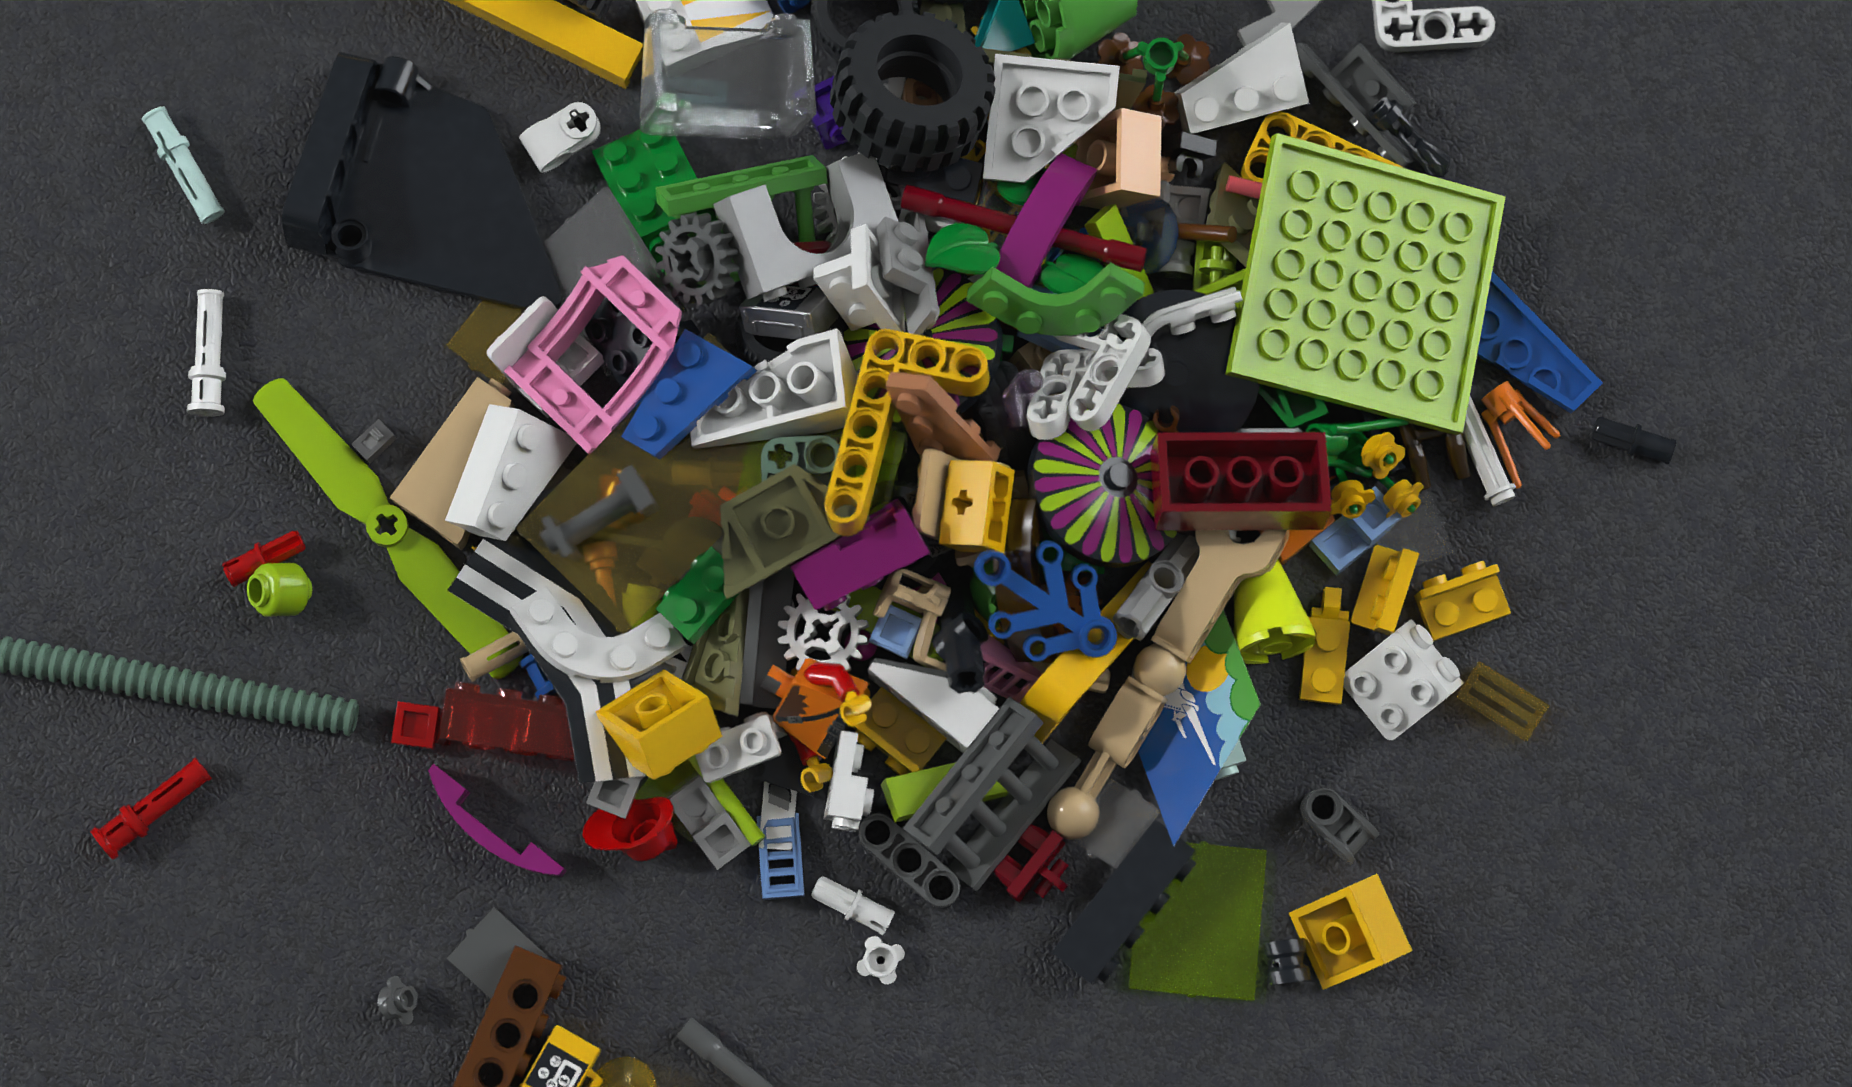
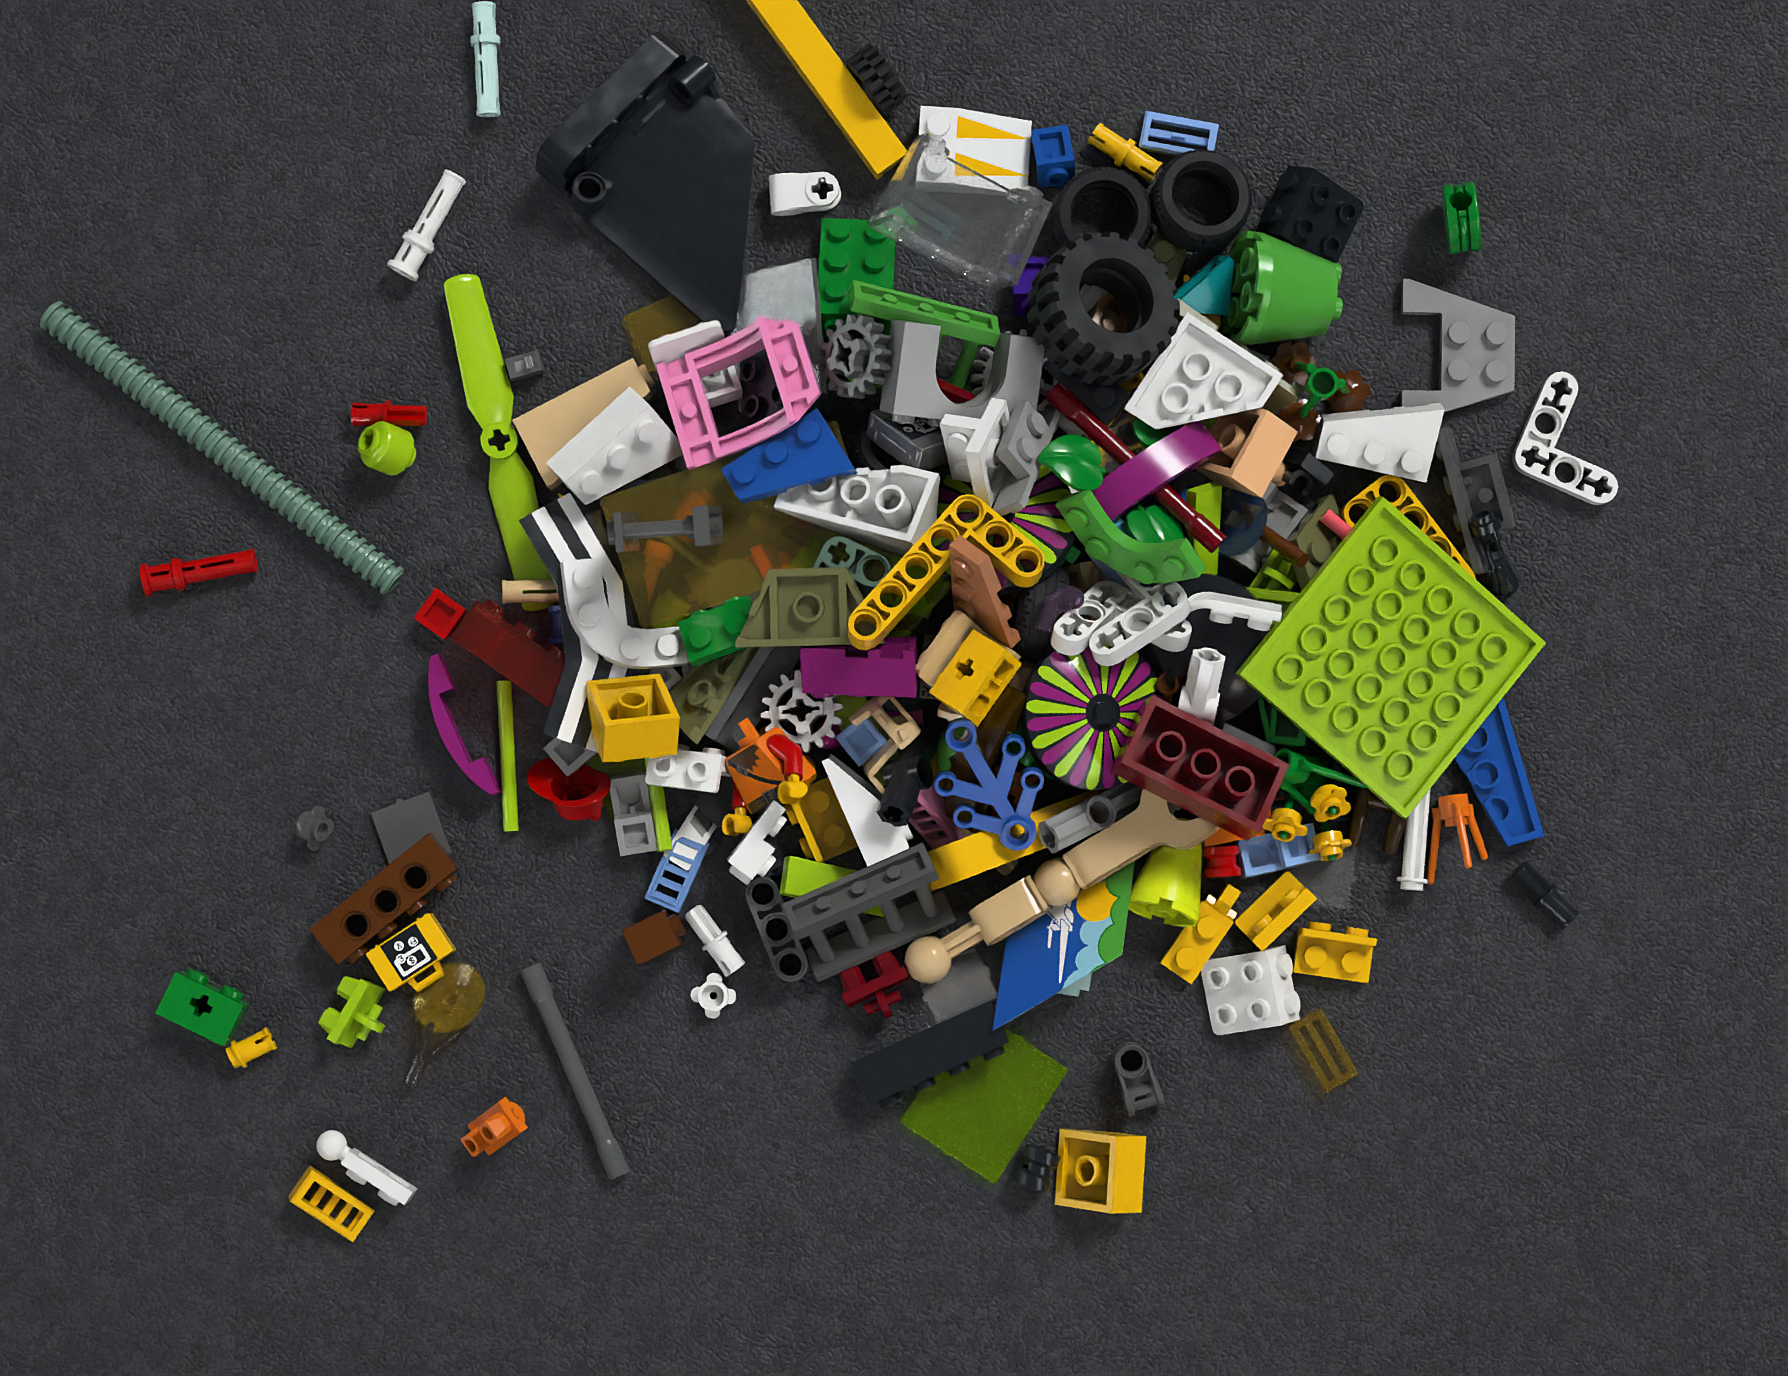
camera: 30 degrees right, 5 degrees up
(554, 831) = (507, 756): none -> lime bar
(793, 928) = (654, 936): none -> reddish brown brick
(1199, 399) = (1201, 693): none -> white piece
(1307, 569) = (1221, 861): none -> red wheel

